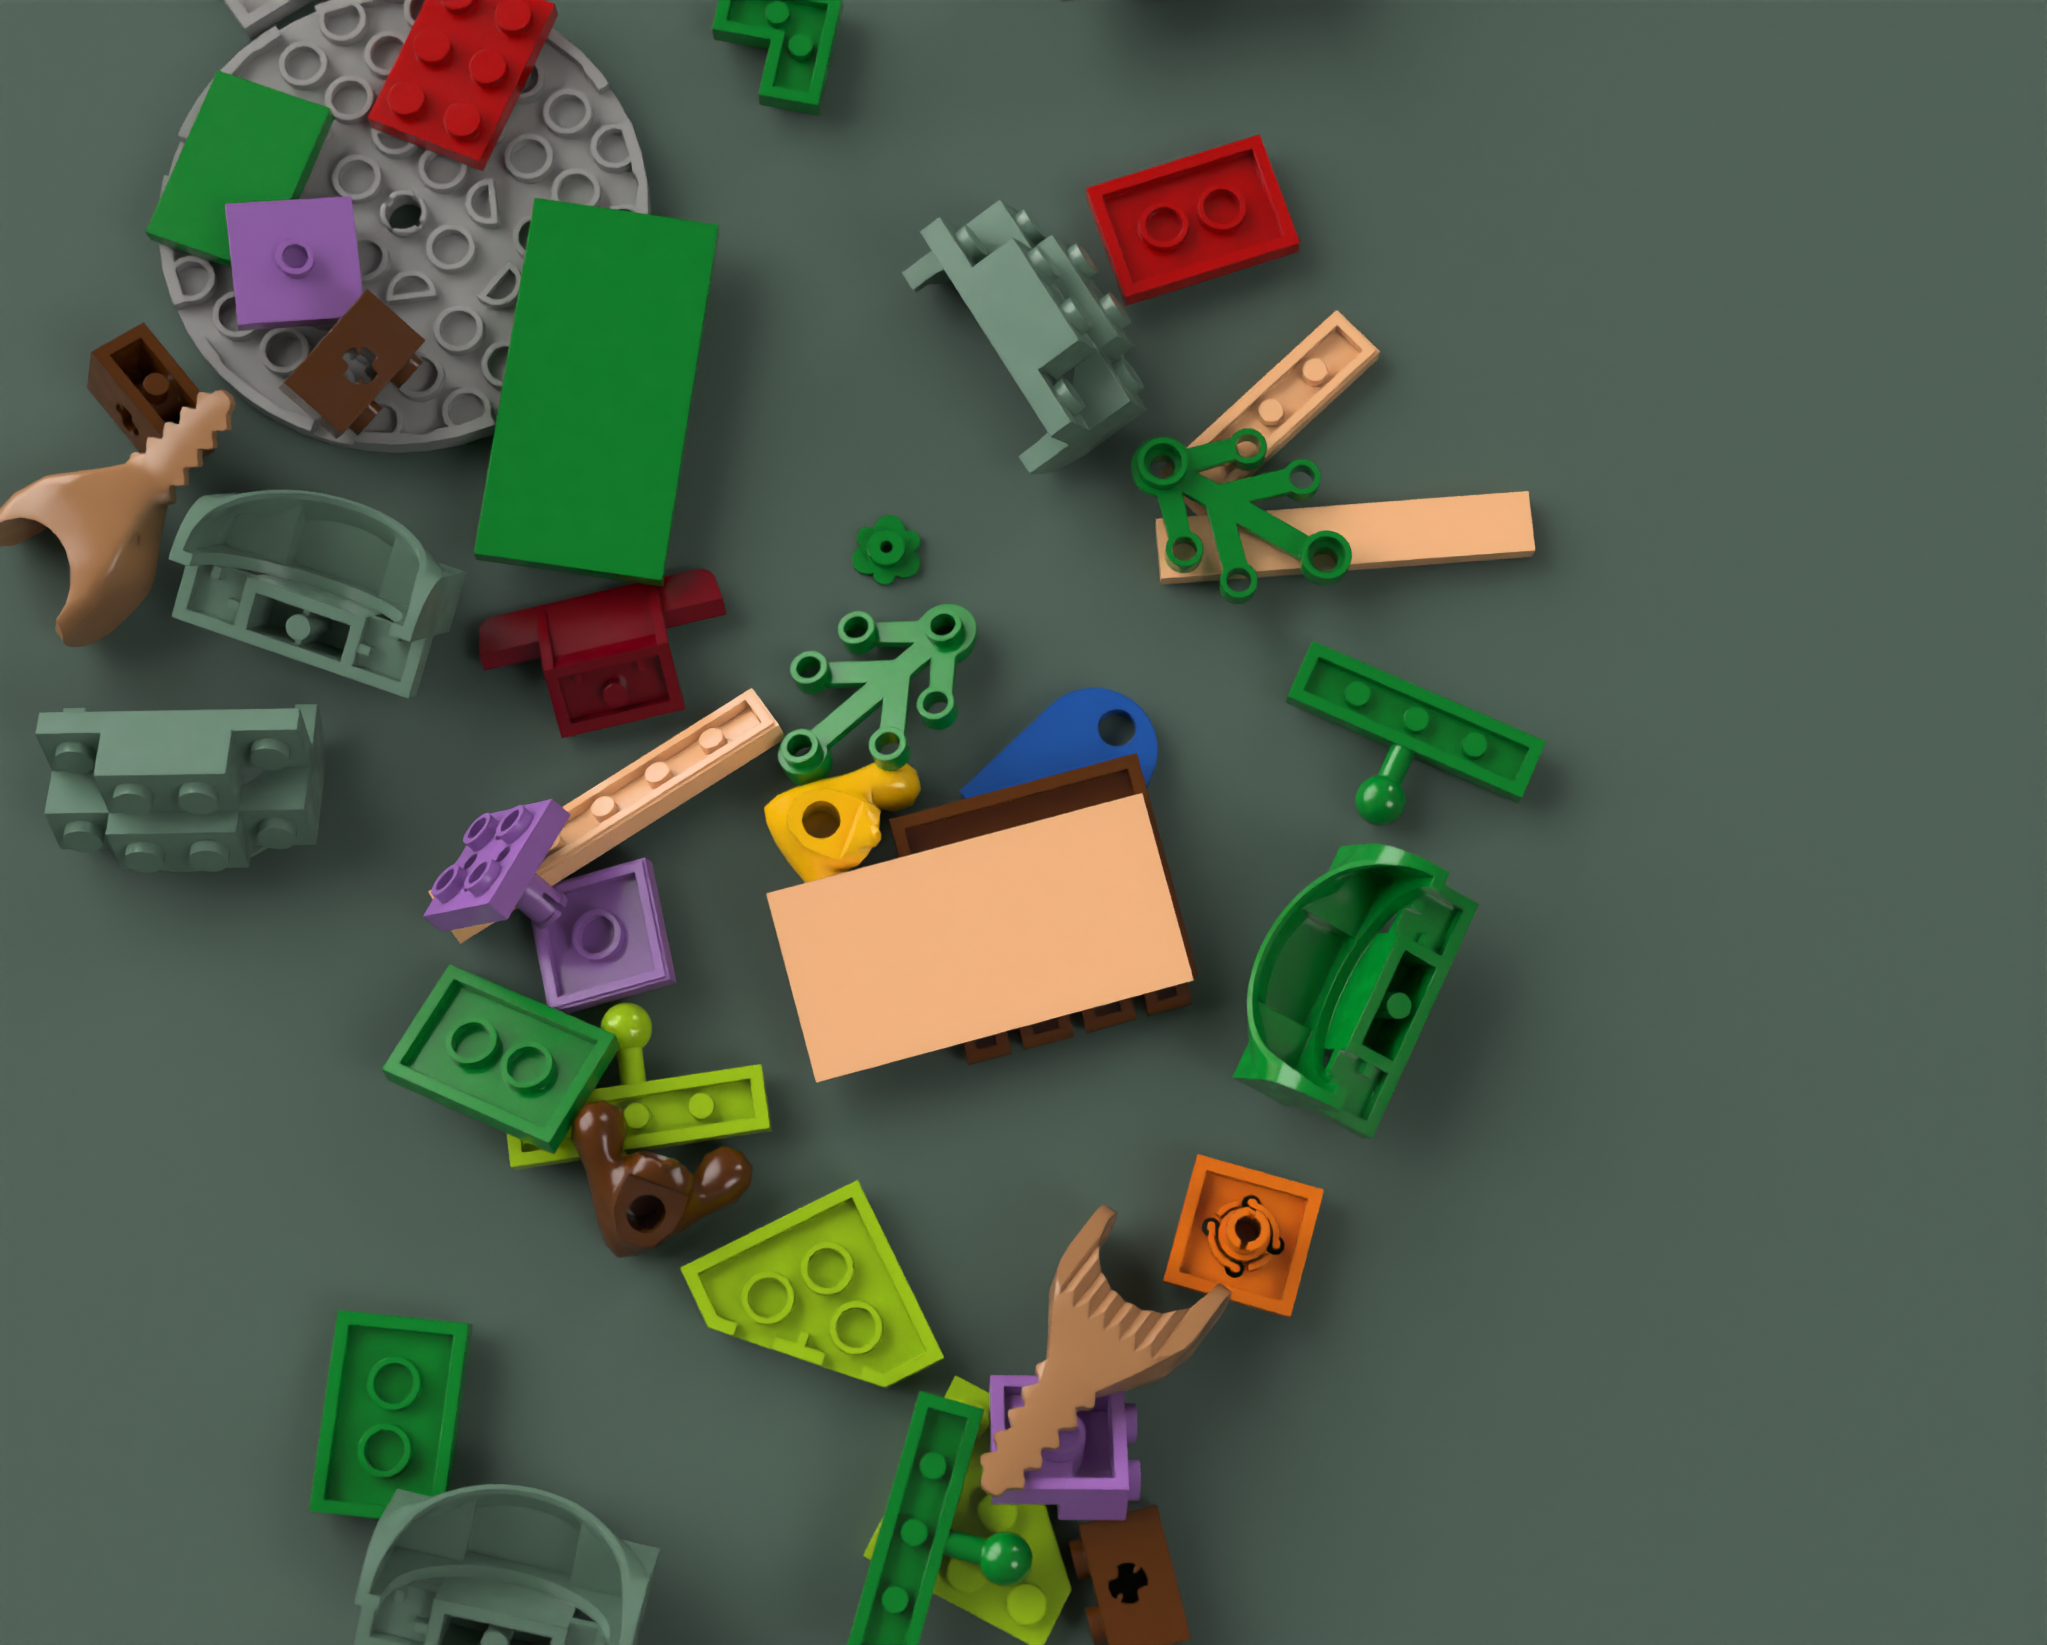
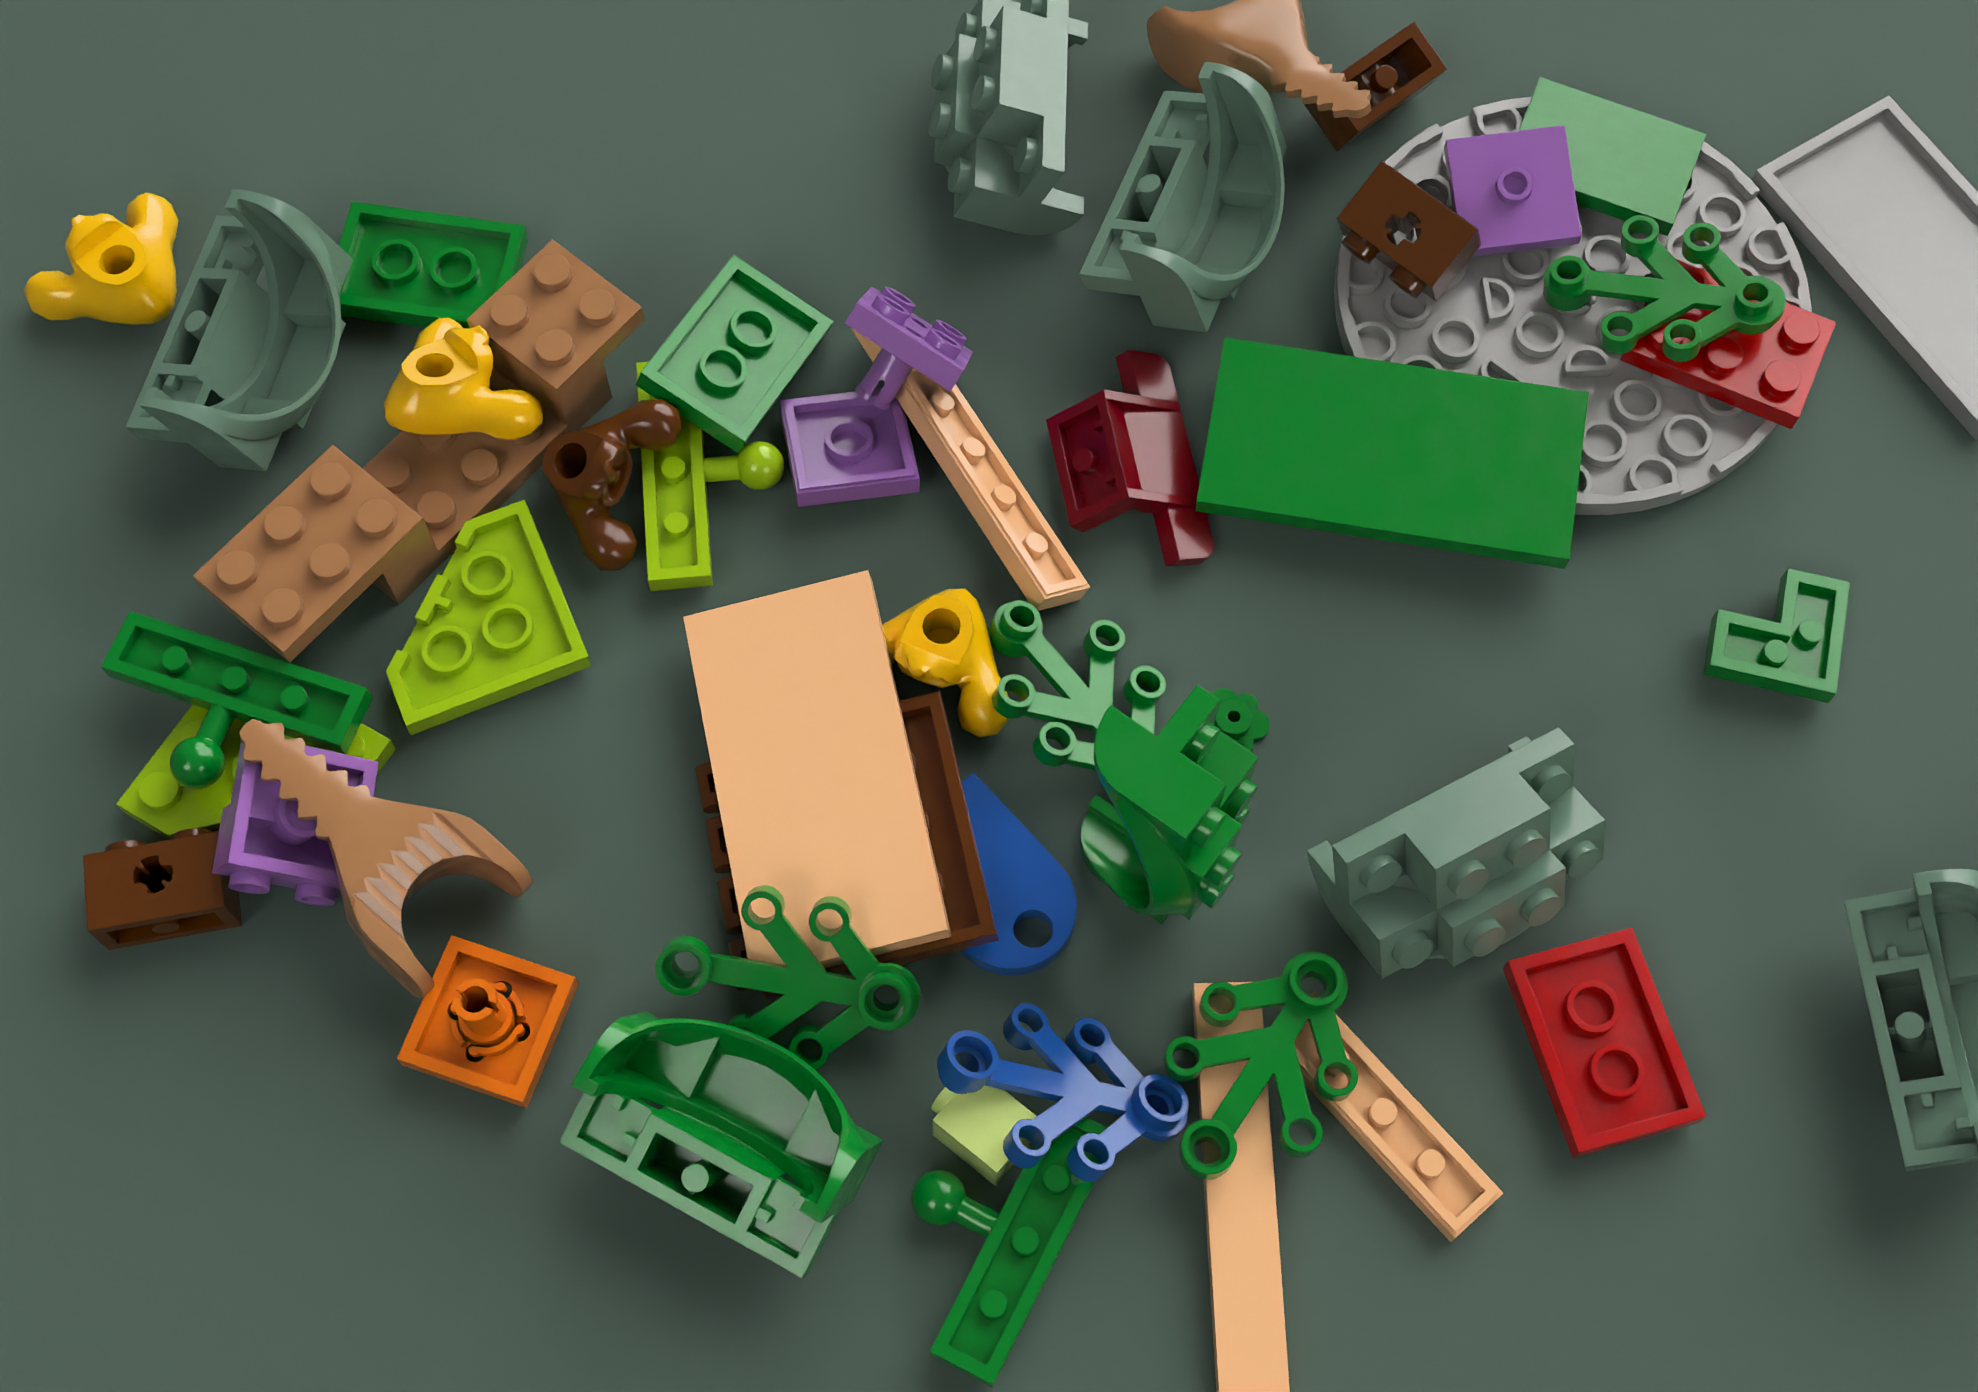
camera: 90 degrees right, 10 degrees down
(421, 109) = (1669, 293): none -> green plant
(557, 1356) = (448, 390): none -> yellow head
(641, 1367) = (406, 506): none -> medium nougat bracket
(1035, 582) = (1174, 809): none -> green piece
(1197, 935) = (801, 980): none -> green plant
(1277, 679) = (1147, 1105): none -> blue plant
(1312, 761) = (976, 1127): none -> yellowish green brick

